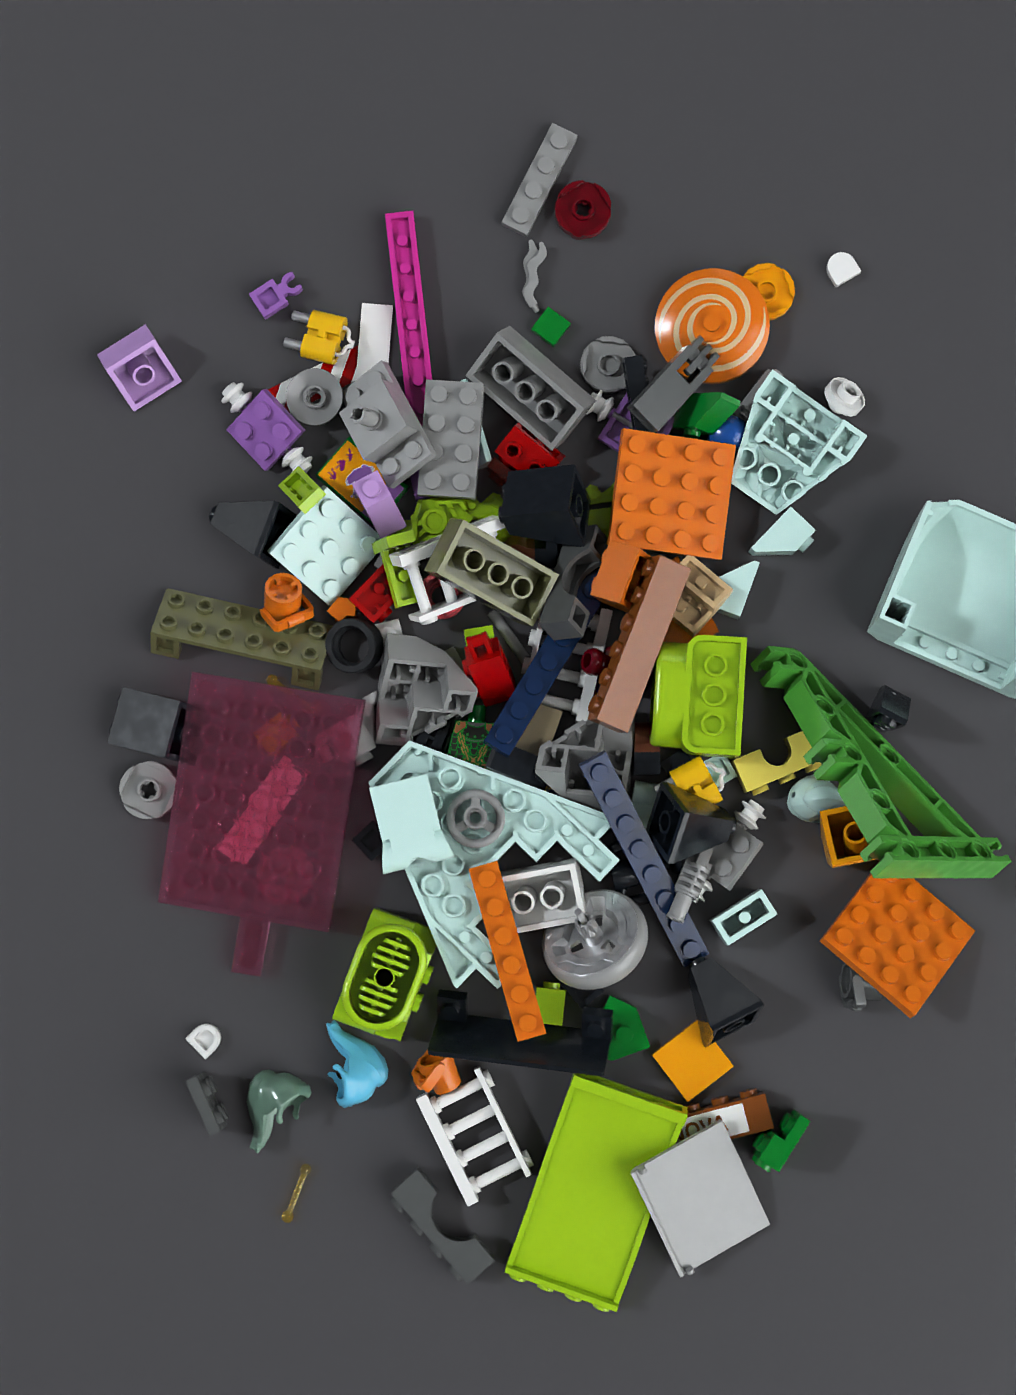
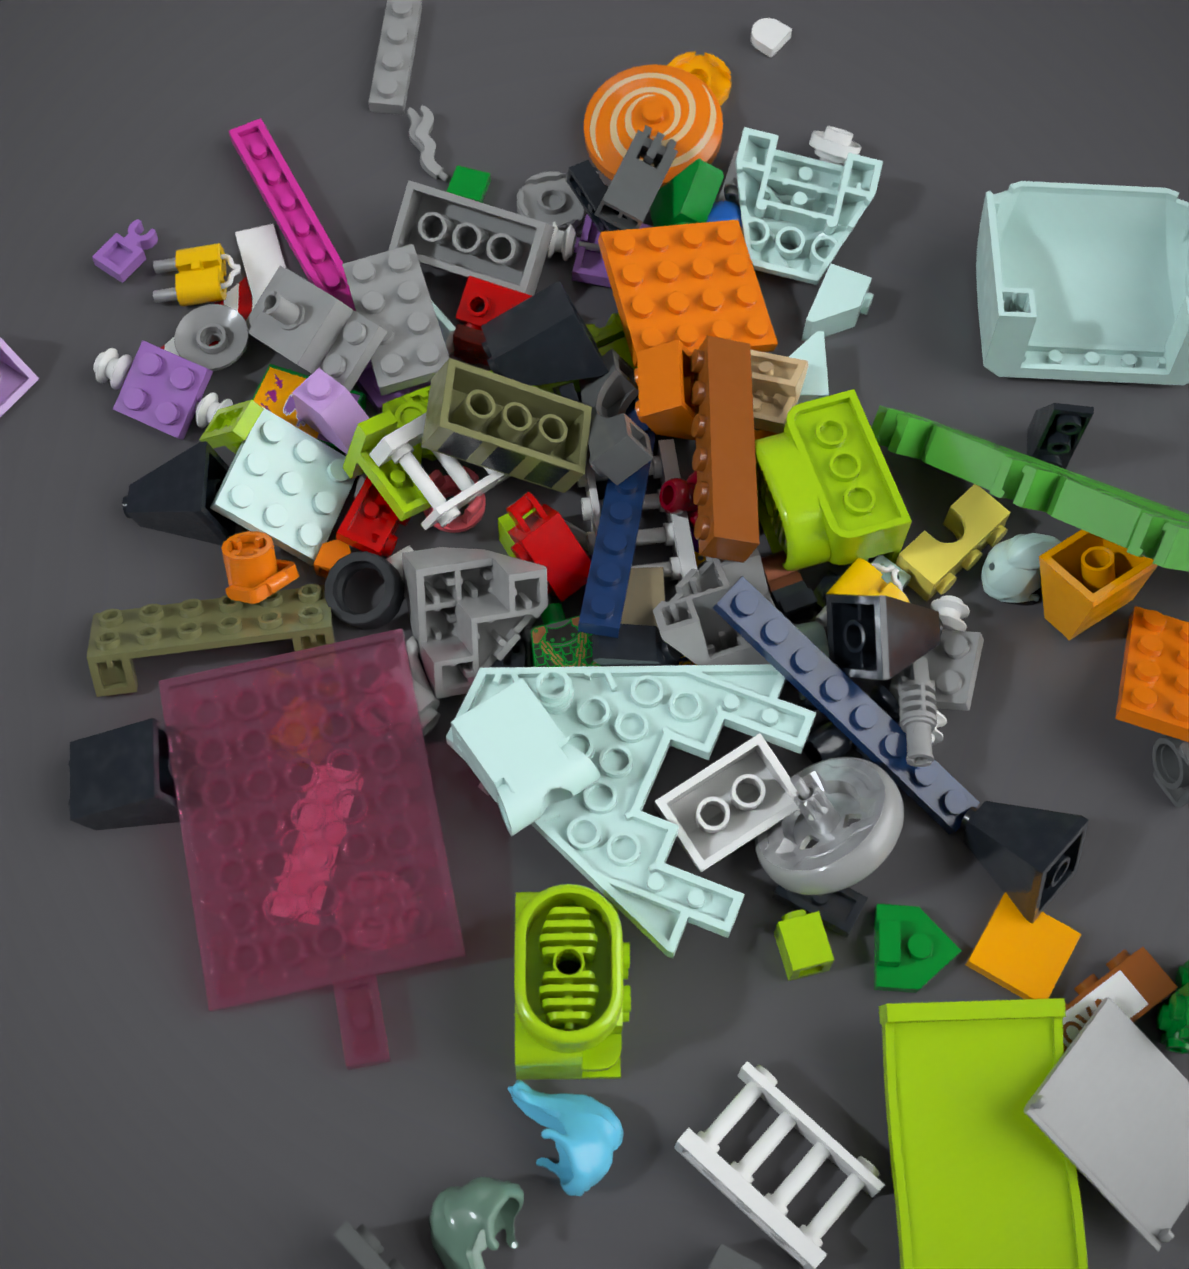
camera: 25 degrees left, 20 degrees down
(133, 796) = (131, 885): light grey plate -> none
(205, 1039) = (341, 1182): white tile -> none
(369, 840) = (478, 822): black plate -> none
(436, 1074) = (691, 1090): orange piece -> none
(494, 829) = (605, 708): light grey piece -> none
(495, 1041) = (772, 1008): black bracket -> none
(507, 951) = (723, 878): orange plate -> none
(586, 193) = (462, 80): dark red plate -> none
(743, 917) = (1001, 735): light aqua brick -> none

